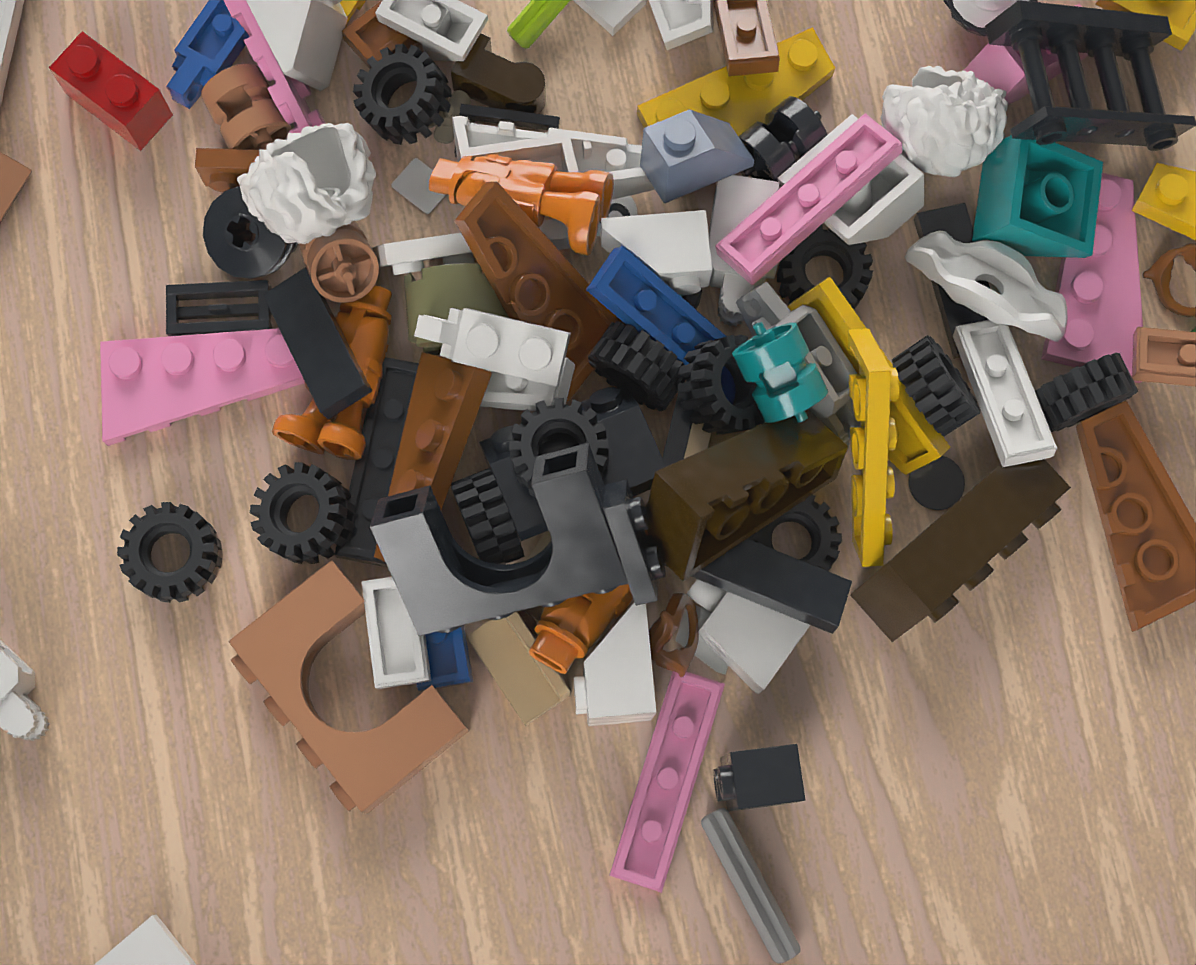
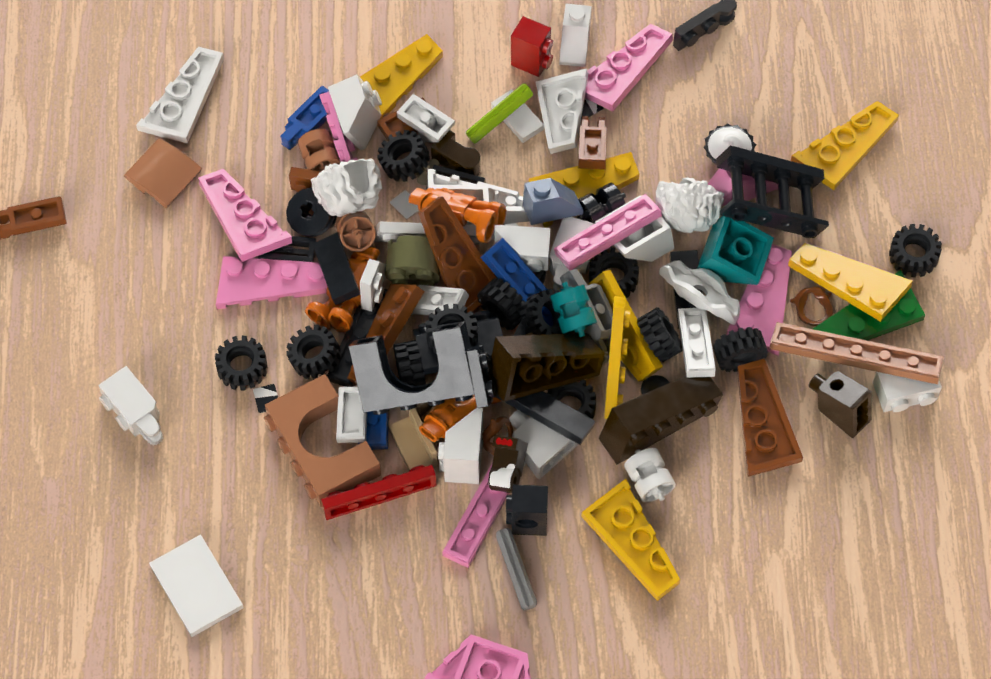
camera: 15 degrees right, 15 degrees down
(111, 90) = (251, 134): red brick -> none
(126, 266) = (242, 218): none -> bright pink wing
(229, 610) = (264, 395): none -> sticker
(389, 369) = (371, 284): none -> white wing
(449, 784) = (388, 489): none -> red plate
(498, 344) = (430, 276): white hinge -> none
(703, 692) = (507, 463): none -> dark brown leg
(939, 780) = (625, 530): none -> yellow wing
(963, 664) = (650, 476): none -> white wheel

